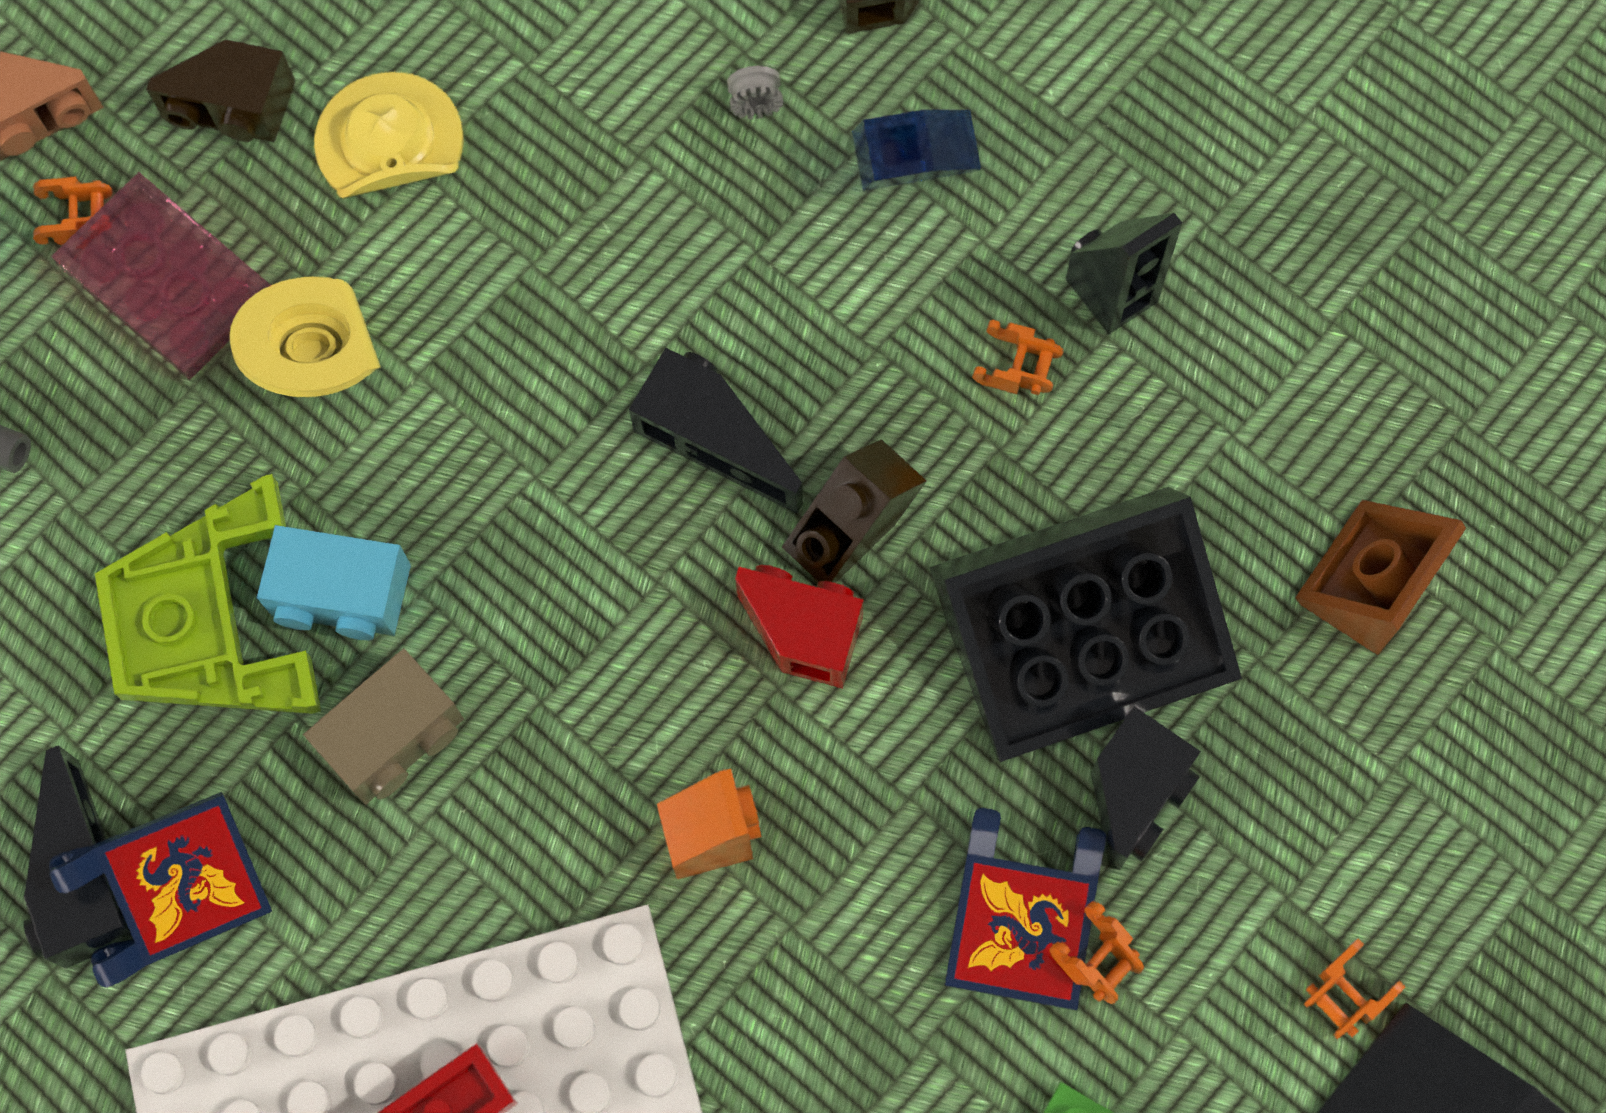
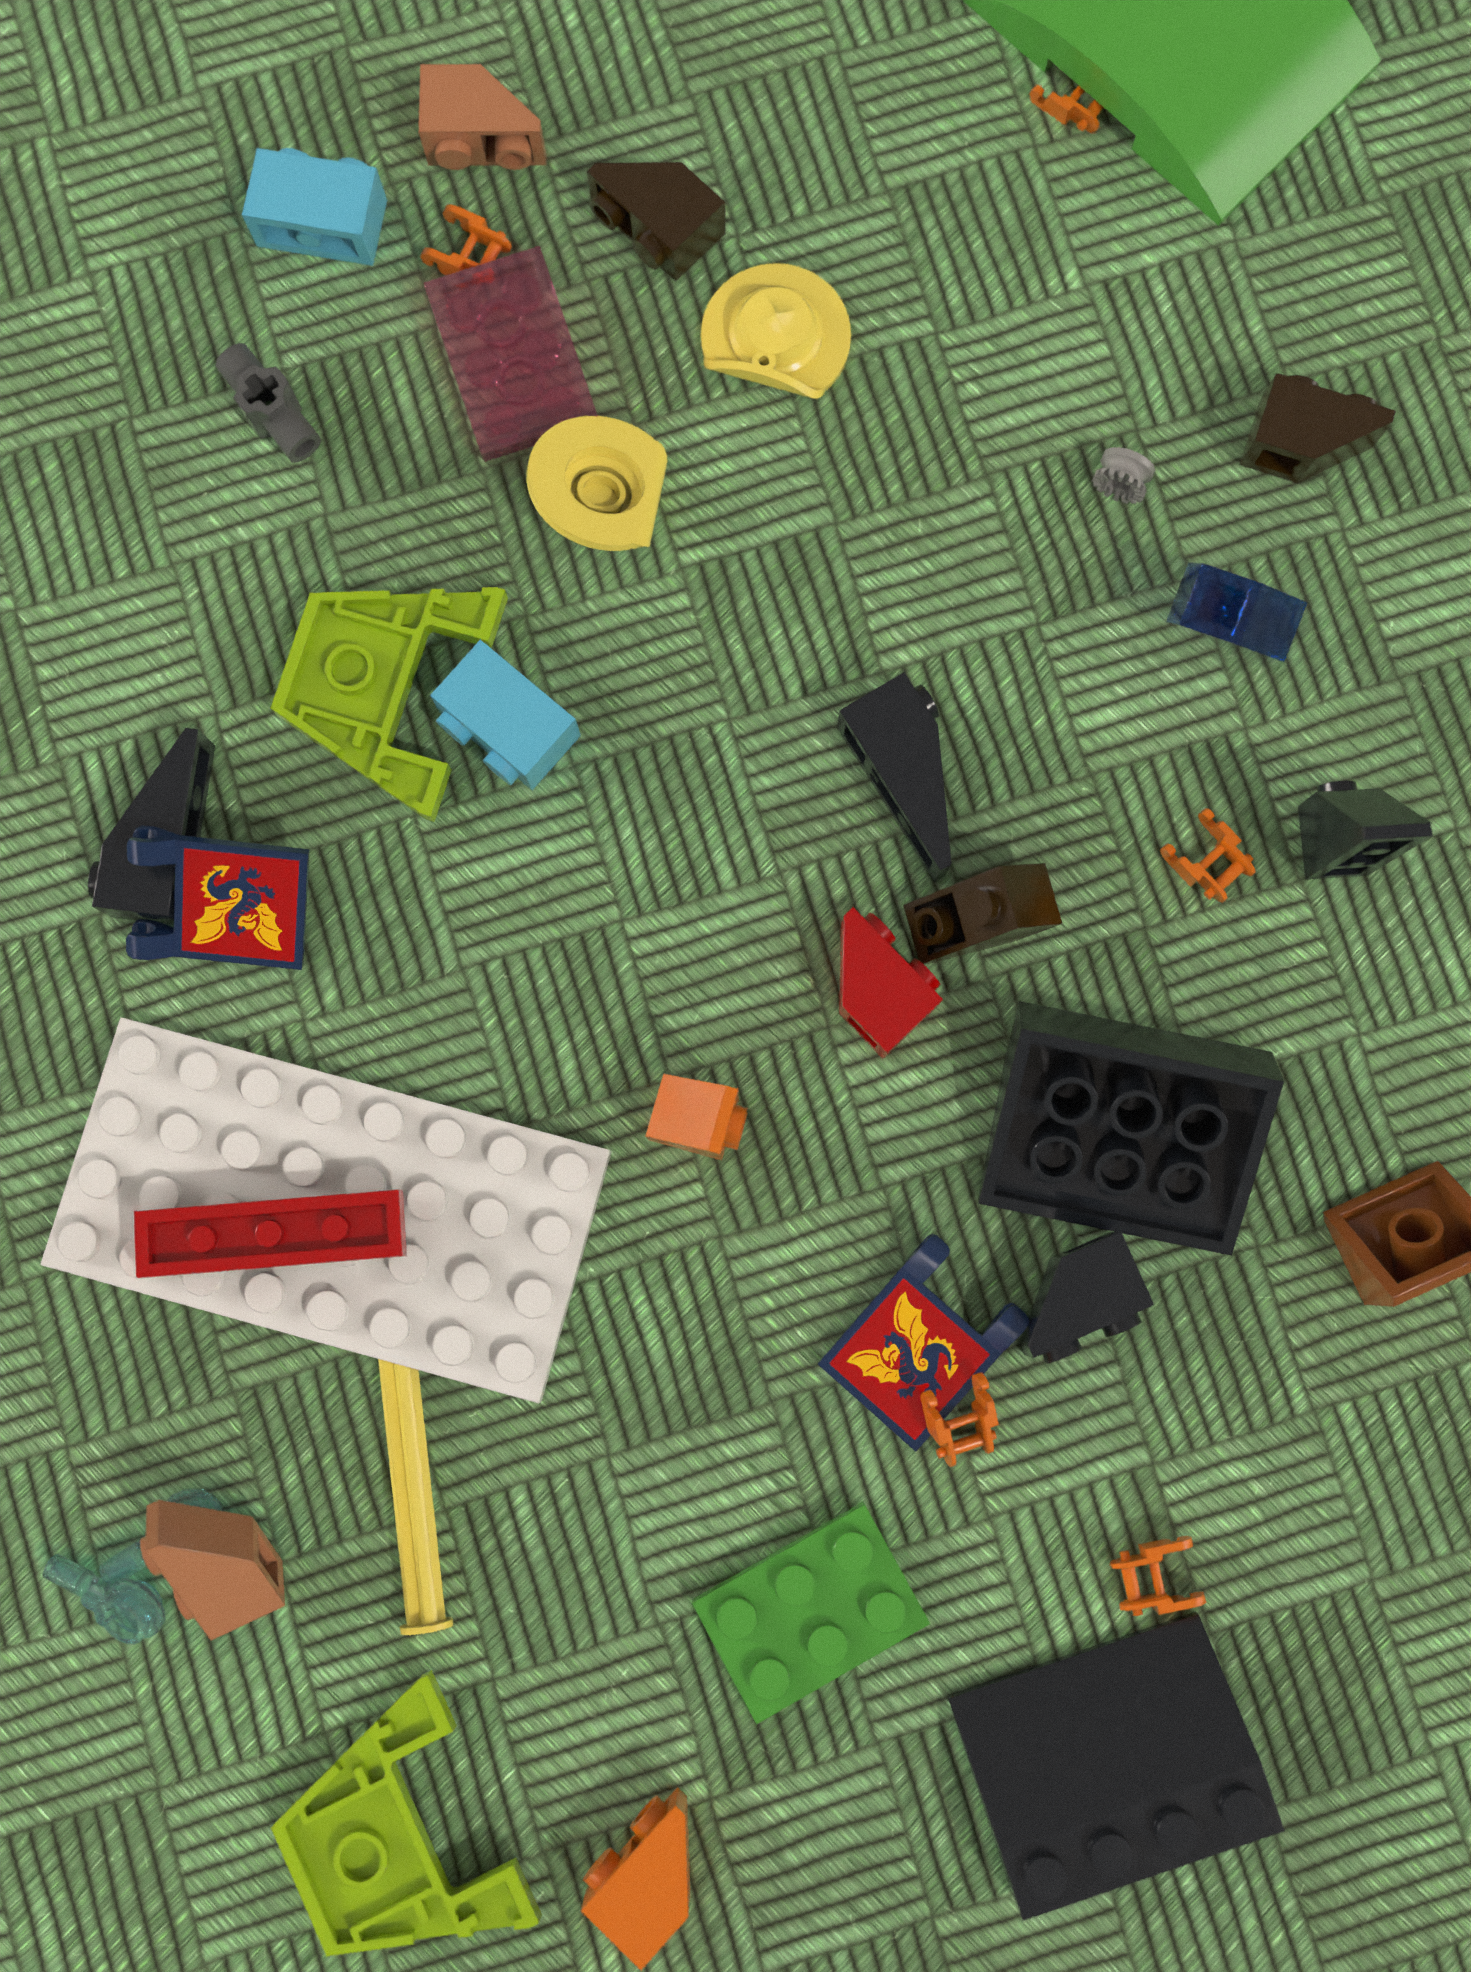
camera: 30 degrees right, 10 degrees up
(385, 728) = (476, 870): dark tan brick -> none

